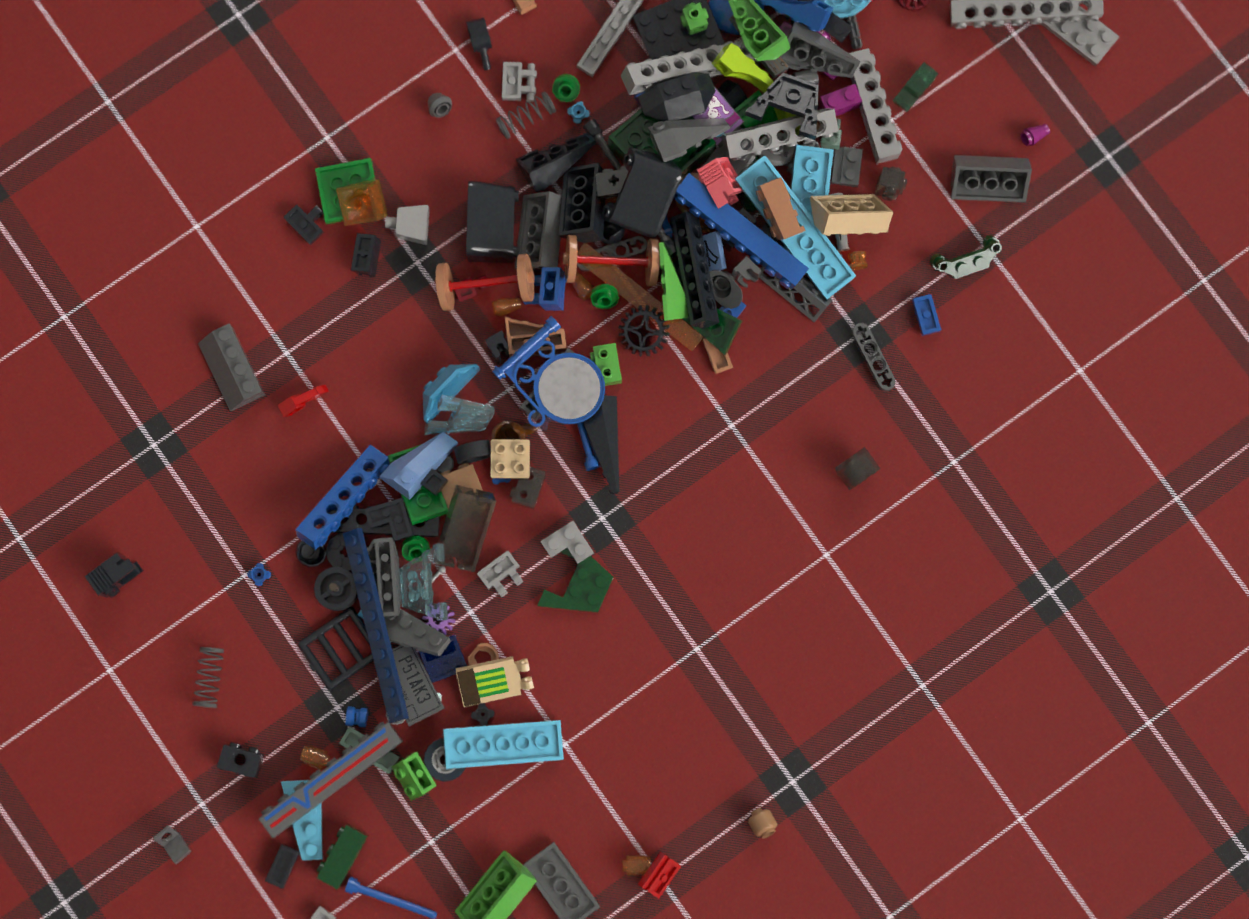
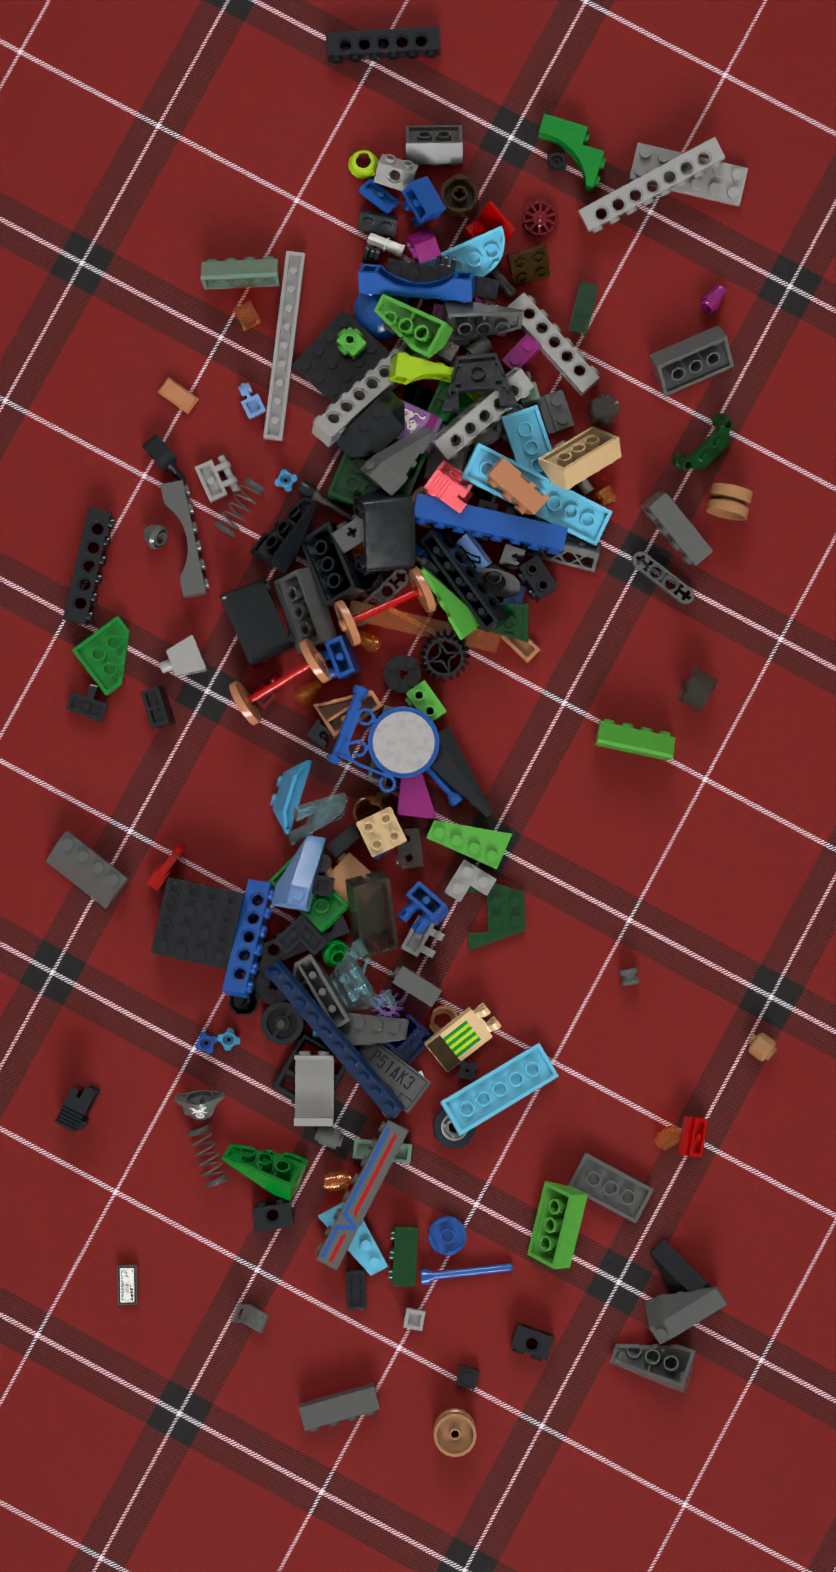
camera: 15 degrees left, 5 degrees up
(77, 760) = (127, 1284): none -> tile
(225, 626) = (199, 1103): none -> dark grey hat
(260, 720) = (272, 1171): none -> green wedge
(277, 586) = (228, 1034): none -> dark azure plate
(304, 460) = (197, 923): none -> black piece
(327, 713) = (329, 1137): none -> dark grey brick
(335, 663) = (314, 1089): none -> light grey panel
(361, 716) = (360, 1125): blue wheel -> none
(362, 202) = (131, 661): clear orange slope -> none
(367, 93) = (93, 519): none -> black brick
(390, 857) = (447, 1235): none -> blue tile
(413, 776) = (433, 1155): bright green brick -> none
(453, 156) = (192, 577): none -> dark grey arch
(473, 612) = (416, 985): none -> dark grey brick
(521, 546) = (423, 900): none -> blue brick
(555, 445) = (415, 799): none -> magenta slope
(566, 88) = (264, 463): green plate -> none
(581, 33) = (252, 405): none -> medium blue plate
(589, 510) = (476, 843): none -> bright green wedge
(597, 319) = (393, 667): none -> black plate
(604, 296) = (393, 641): green plate -> none
(671, 699) = (629, 976): none -> dark grey wheel
(759, 303) = (536, 579): none -> black brick
(778, 488) = (634, 740): none -> bright green slope
(884, 27) = (528, 265): none -> dark brown bracket
(906, 318) = (676, 528): none -> dark grey wedge
(926, 314) = (694, 514): blue plate -> none
(965, 316) = (729, 501): none -> medium nougat wheel

